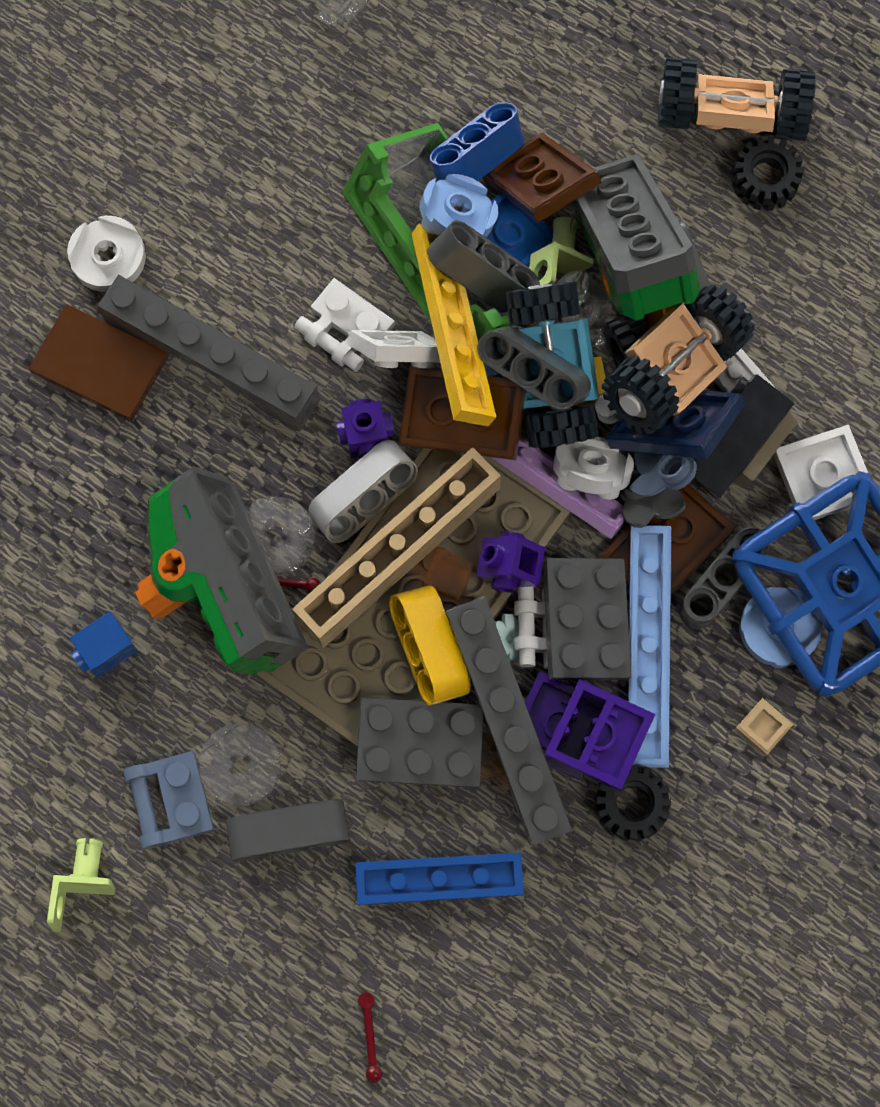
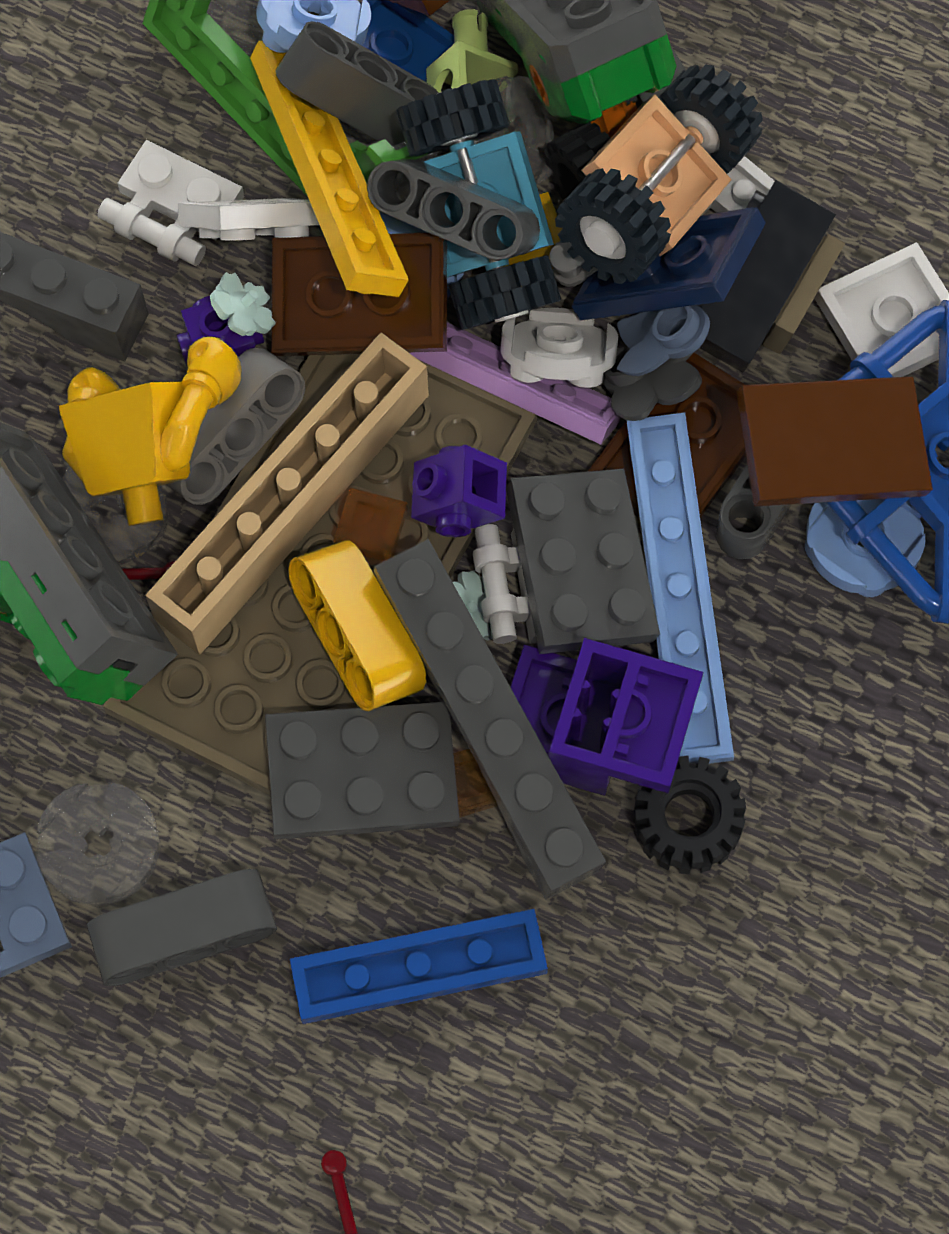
camera: 10 degrees left, 5 degrees down
(305, 496) = (146, 432): none -> yellow torso
(382, 411) = (242, 306): none -> light aqua plant
(764, 727) = (863, 681): tan tile -> none
(768, 565) = (833, 441): none -> reddish brown tile

